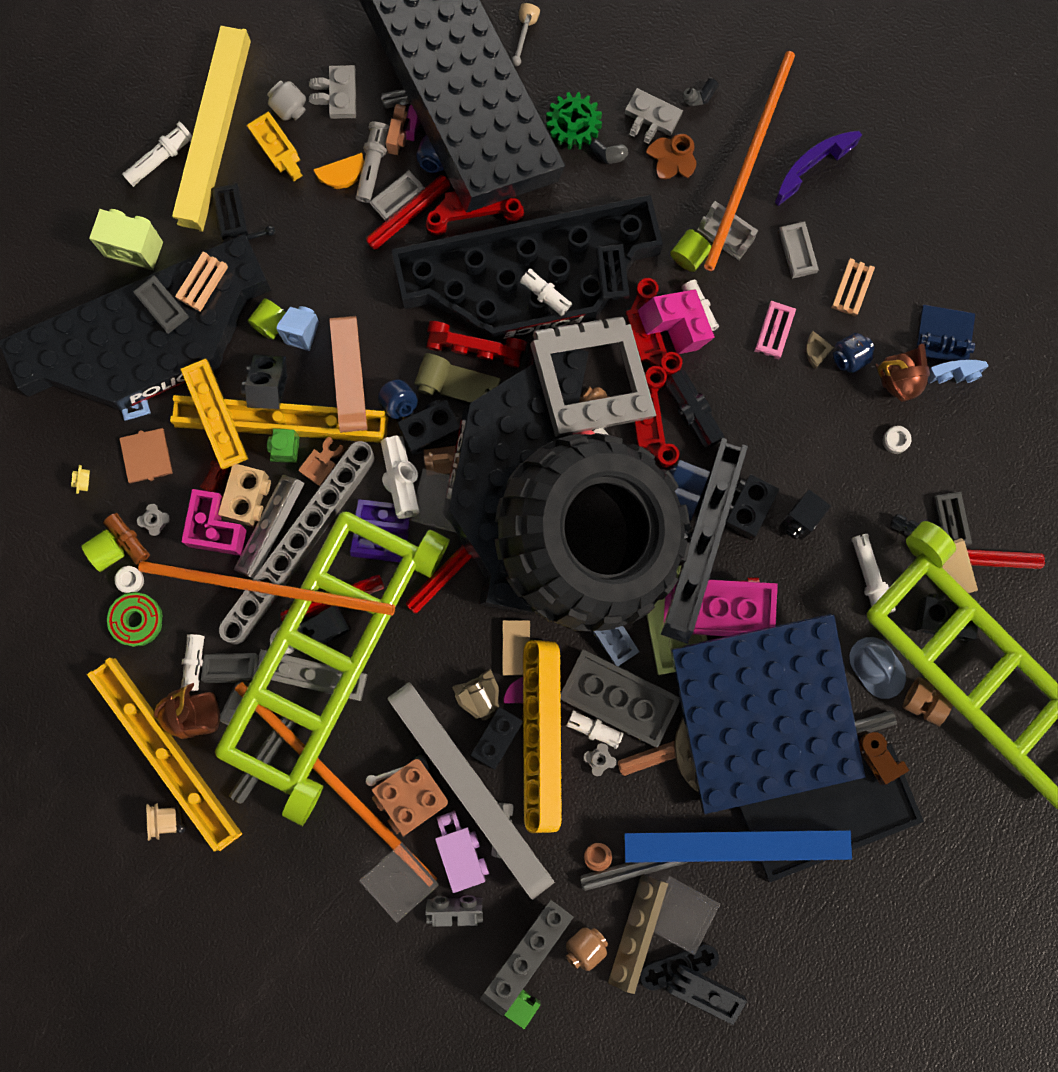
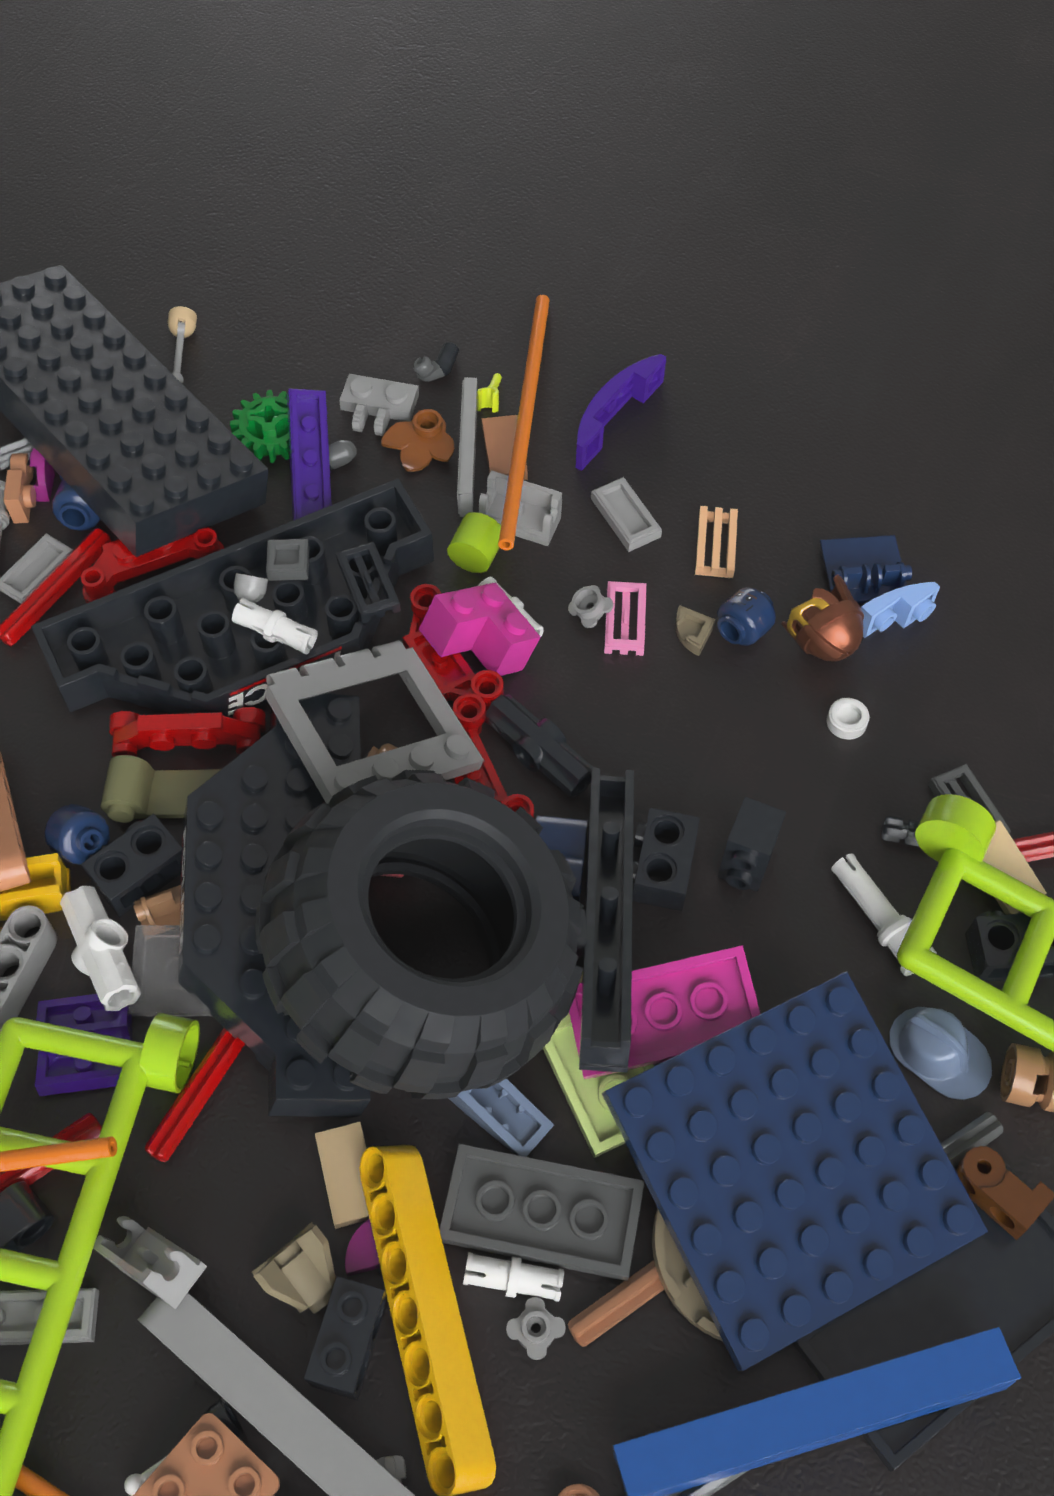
camera: 15 degrees left, 20 degrees down
(401, 670) = (152, 1261): none -> light grey hinge
(536, 259) = (250, 587): none -> light grey hinge
(564, 242) = (287, 559): none -> dark grey tile
(594, 156) = (308, 451): none -> dark purple tile
(704, 171) = (467, 446): none -> light grey tile
(727, 173) = (499, 442): none -> nougat tile
(730, 130) = (489, 396): none -> neon yellow hand
(754, 309) = (584, 599): none -> light grey plate

